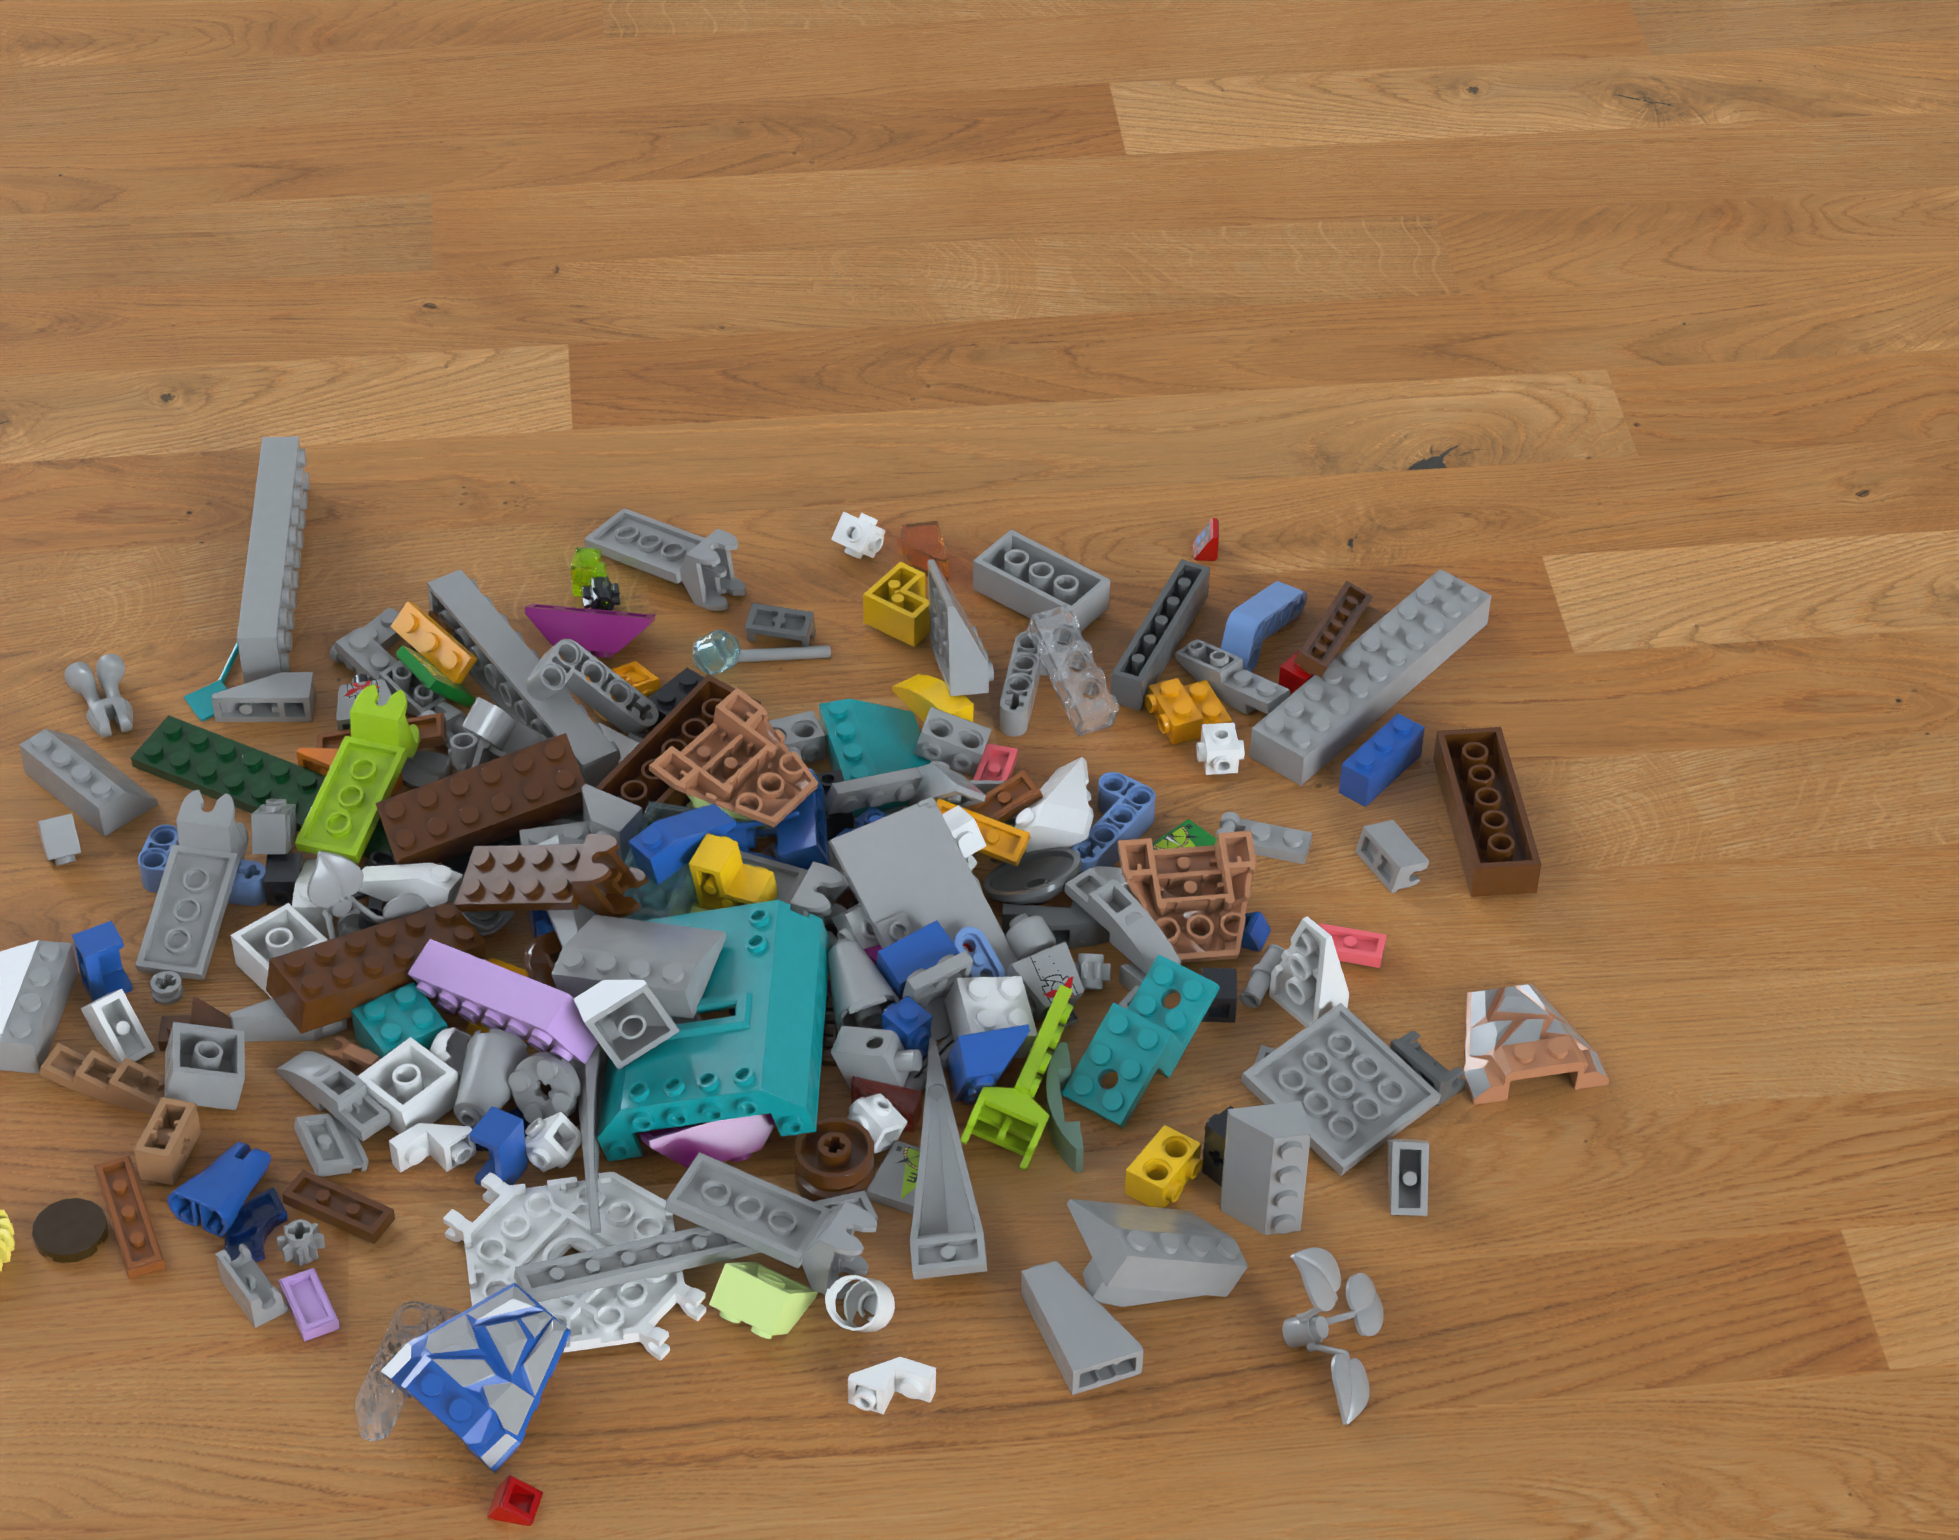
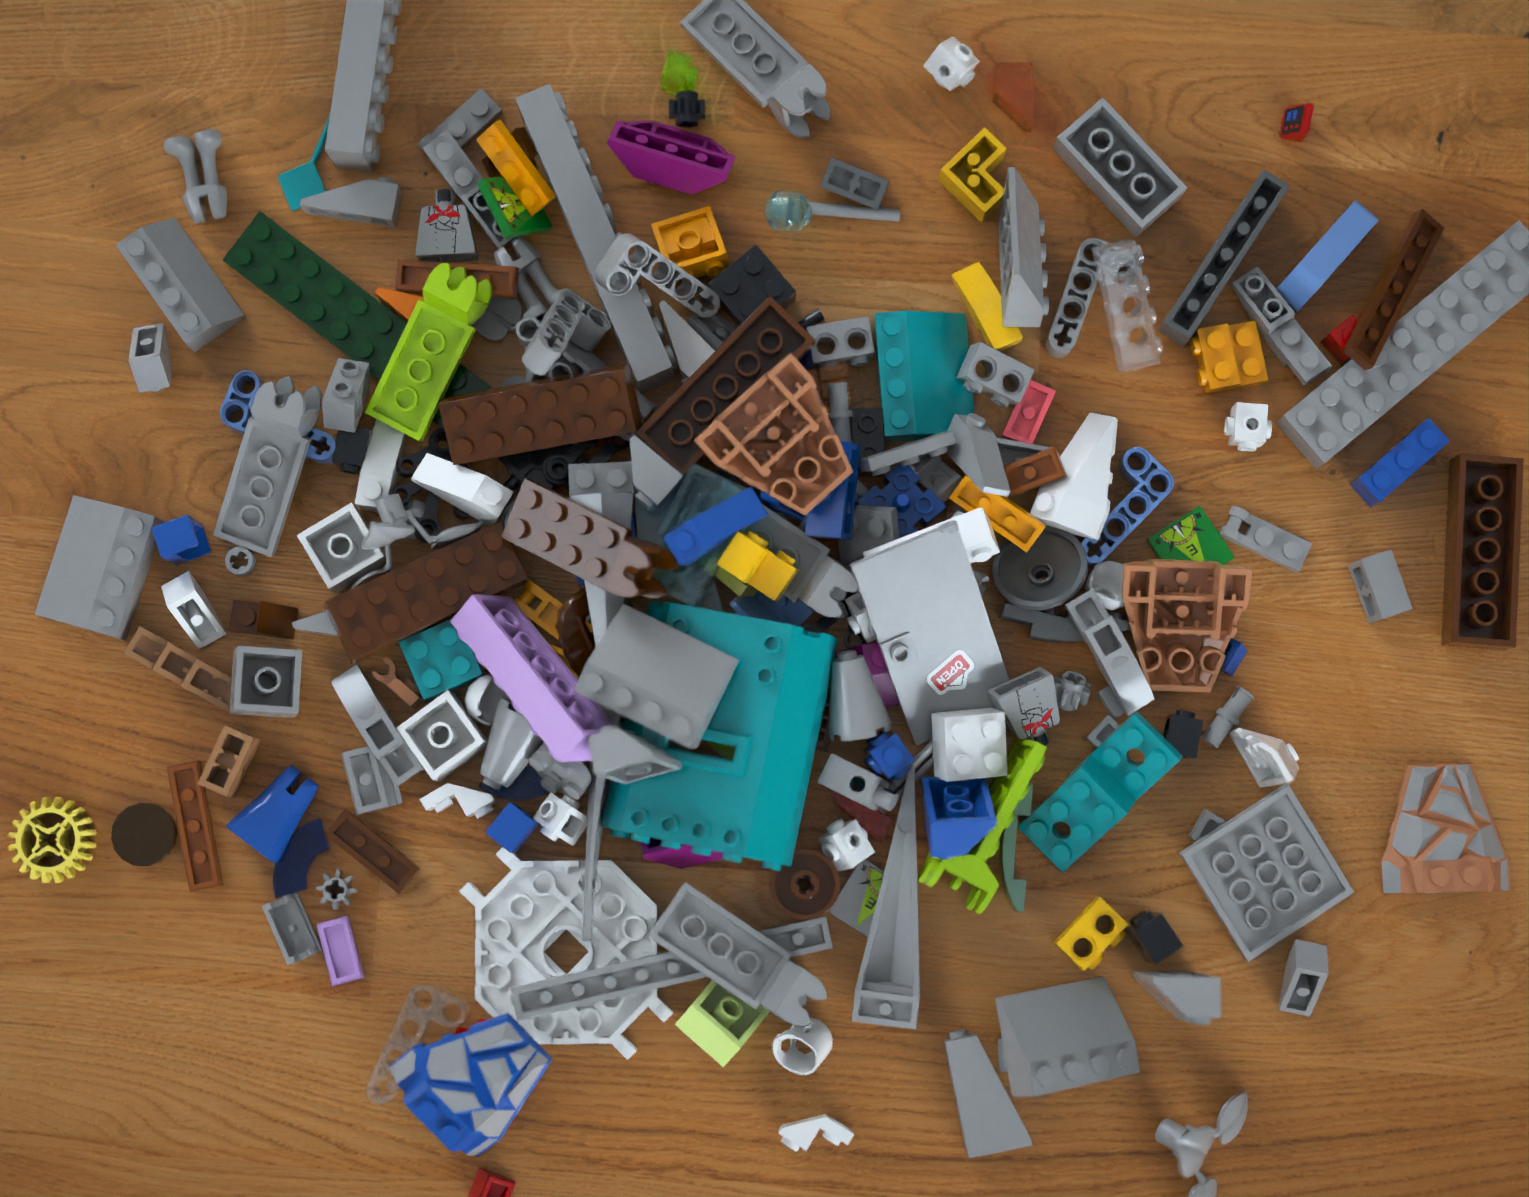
camera: 10 degrees right, 40 degrees up
(913, 952) = (913, 688): blue panel -> none
(937, 981) = (924, 715): light grey plate -> none
(982, 953) = (967, 680): medium blue plate -> none
(1029, 935) = (1022, 654): light grey head -> none
(1357, 945) = (1314, 693): coral plate -> none
(1440, 1078) = (1350, 853): dark grey hinge -> none

